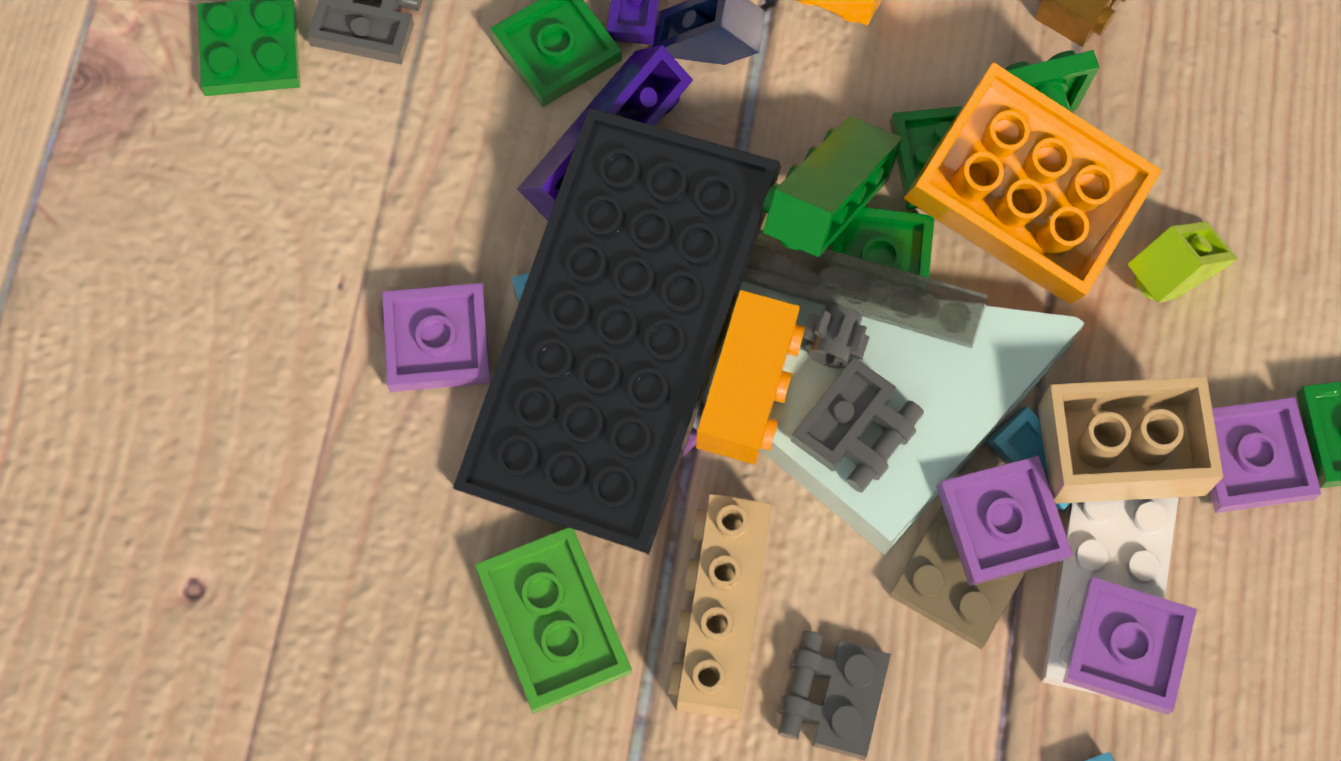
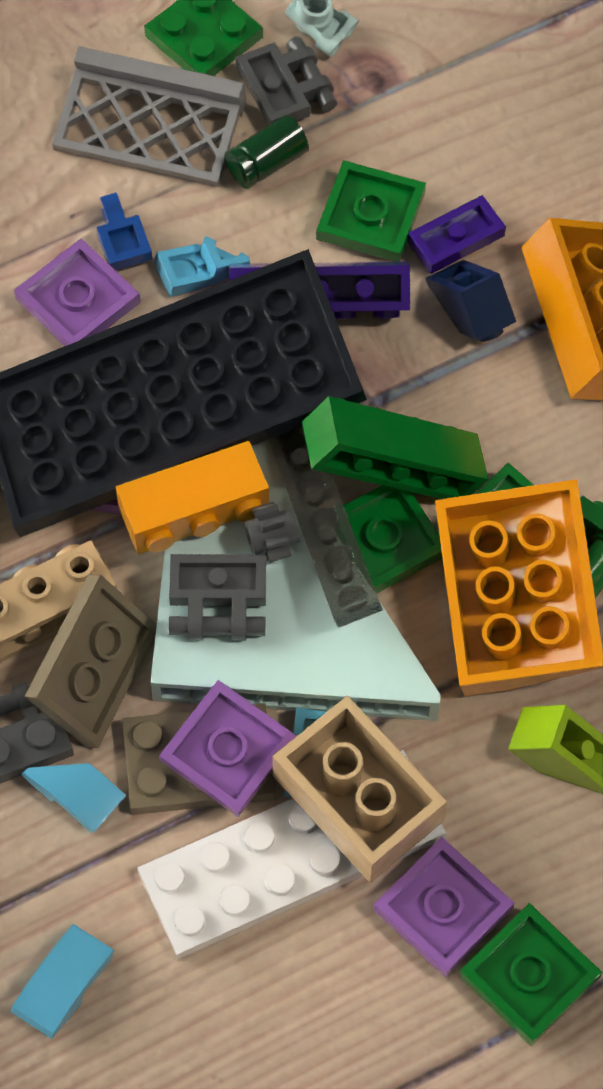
camera: 55 degrees right, 5 degrees down
(276, 116) = (155, 82): none -> light grey fence
(407, 260) = (122, 237): none -> blue plate
(425, 81) = (266, 151): none -> dark green piece
(487, 220) = (195, 266): none -> medium azure slope
(828, 576) = (92, 661): none -> dark tan plate
(934, 677) = (79, 790): none -> medium azure slope
(1130, 645) = (199, 900): medium lavender plate -> none

